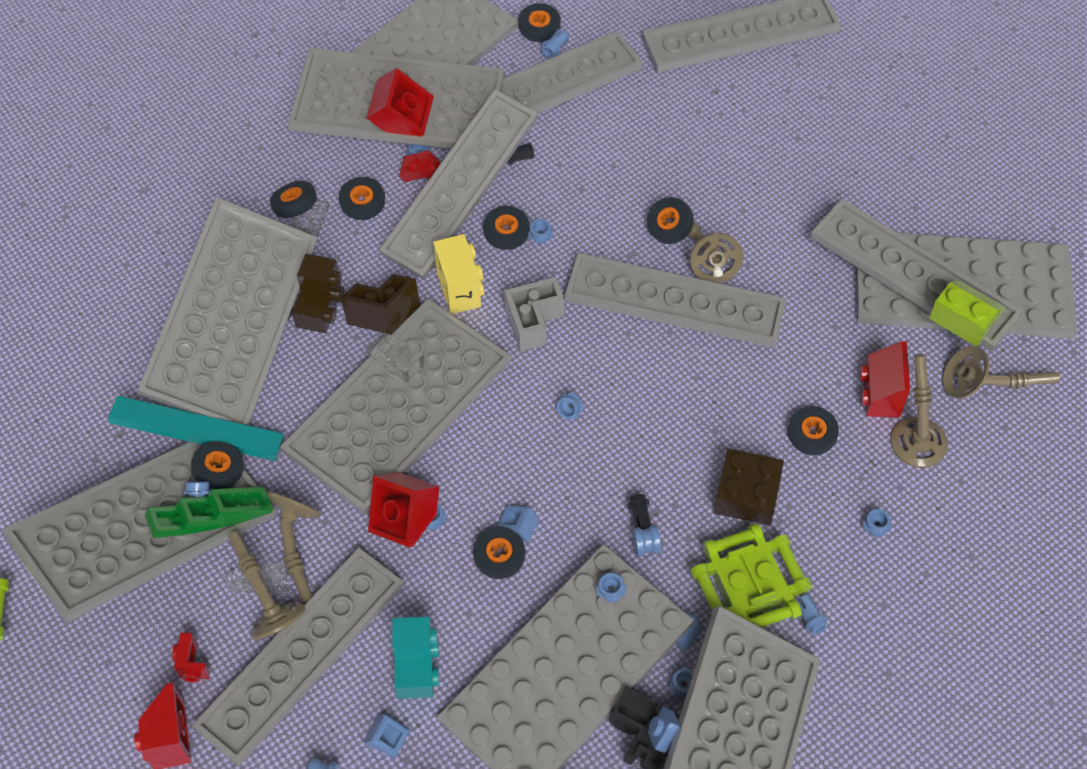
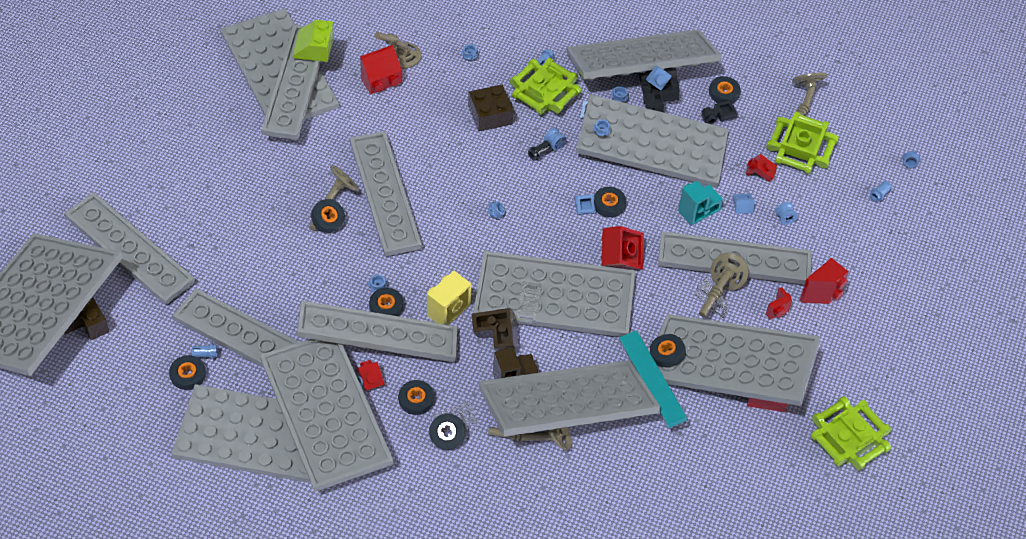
camera: 125 degrees left, 5 degrees down
(196, 489) = (690, 344): medium blue plate -> none
(208, 513) = (700, 329): green slope -> none
(290, 512) = (665, 299): dark tan dish -> none
(400, 105) = (340, 391): red slope -> none
(529, 308) = (449, 254): light grey brick -> none
(823, 439) = (431, 105): black bush -> none
(973, 374) = (347, 37): dark tan dish -> none

